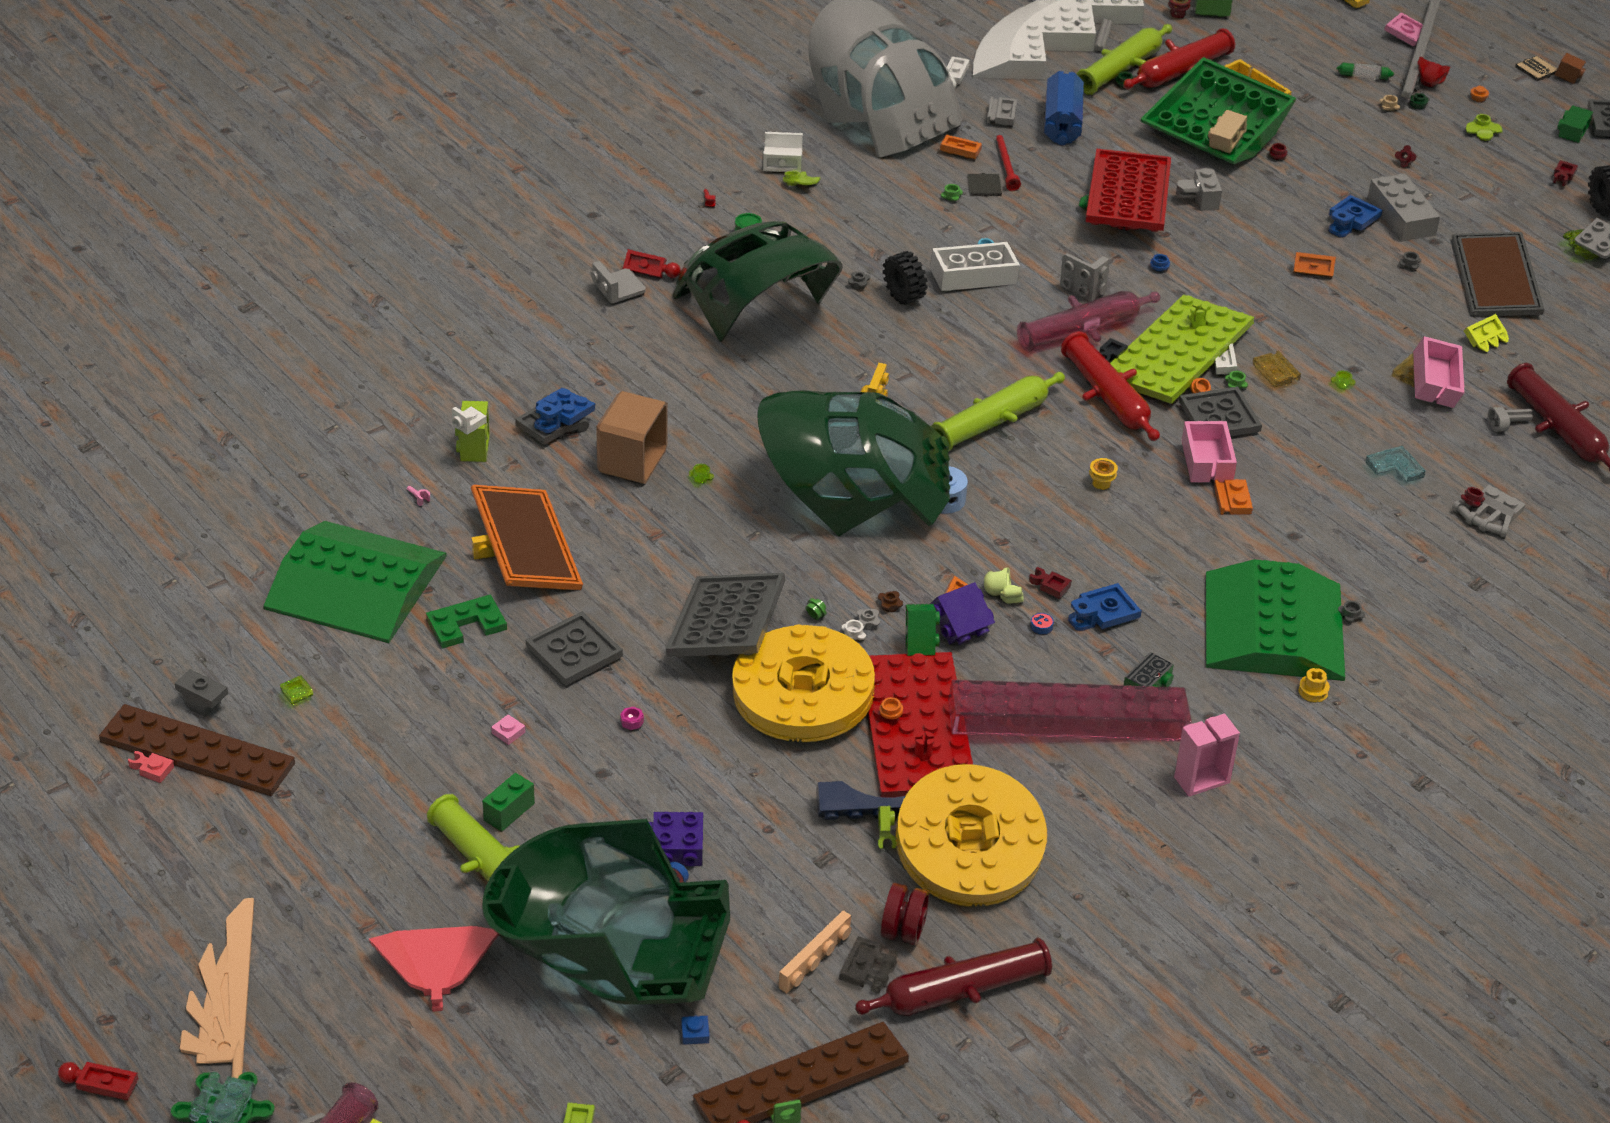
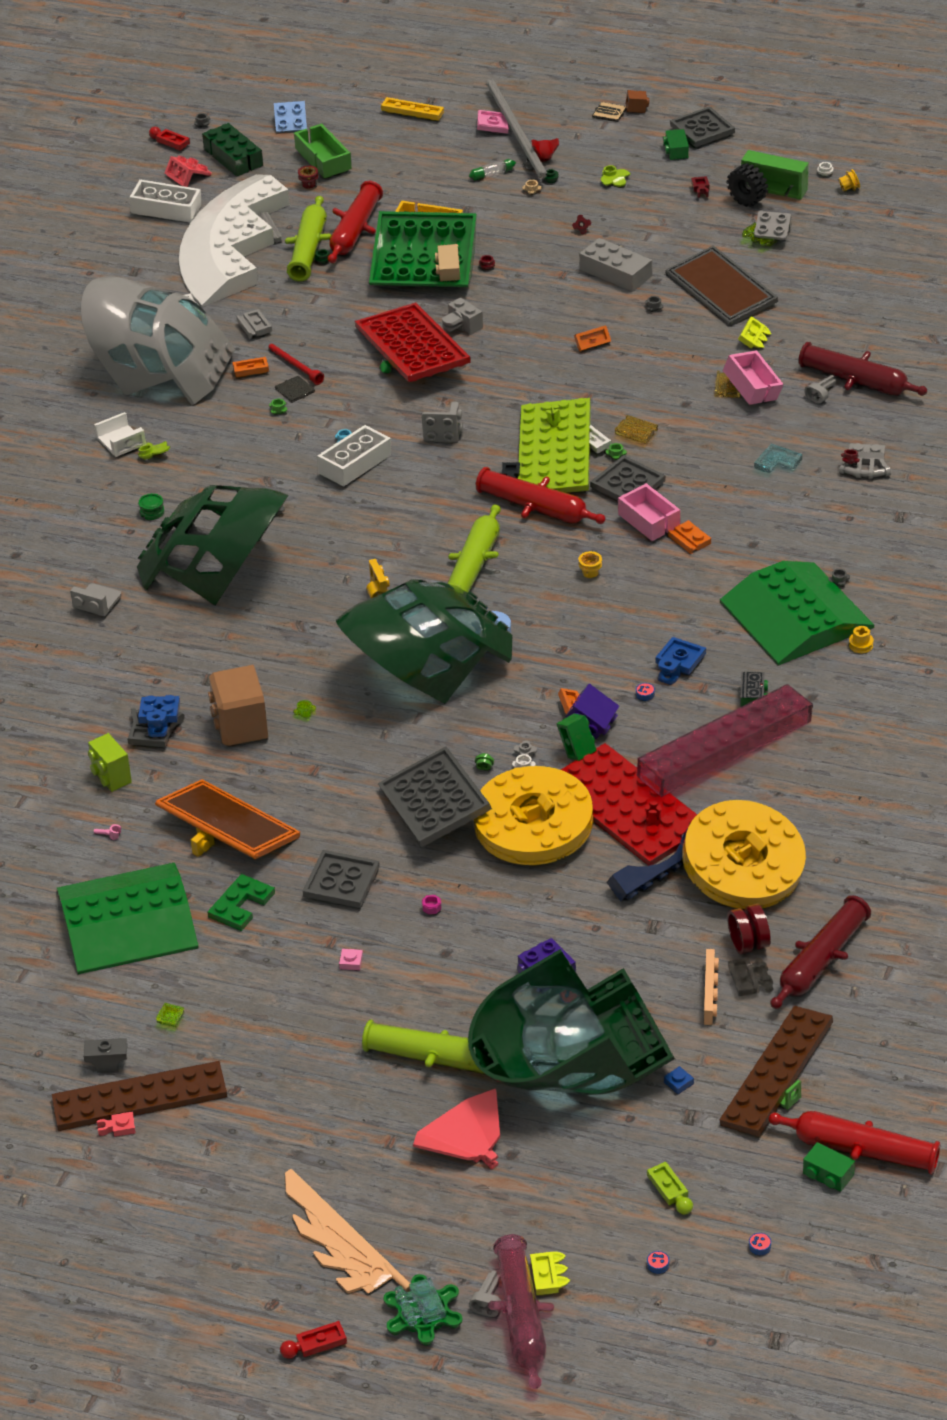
camera: 30 degrees left, 0 degrees up
(467, 420) = (111, 753): white bracket -> none
(508, 802) = (407, 1005): green brick -> none
(650, 265) = (107, 572): red plate -> none
(710, 200) = (98, 500): red hand -> none
(885, 819) = (677, 880): lime plate -> none
(890, 601) = (528, 730): reddish brown plate -> none
(891, 708) = (607, 801): orange plate -> none
(905, 277) = (313, 496): black tyre -> none
(1000, 585) = (596, 678): yellowish green piece -> none
(1050, 583) = (627, 660): dark red plate -> none
(1064, 107) = (303, 299): blue brick -> none
(1085, 317) = (470, 458): clear pink piece -> none
(1160, 262) = (482, 388): blue plate -> none
(1200, 385) = (596, 467): orange plate -> none
(1206, 755) = (844, 720): bright pink piece -> none
(1343, 379) = (687, 415): clear neon green plate -> none
(1352, 214) = (584, 288): blue plate -> none
(1479, 93) = (588, 150): orange plate -> none

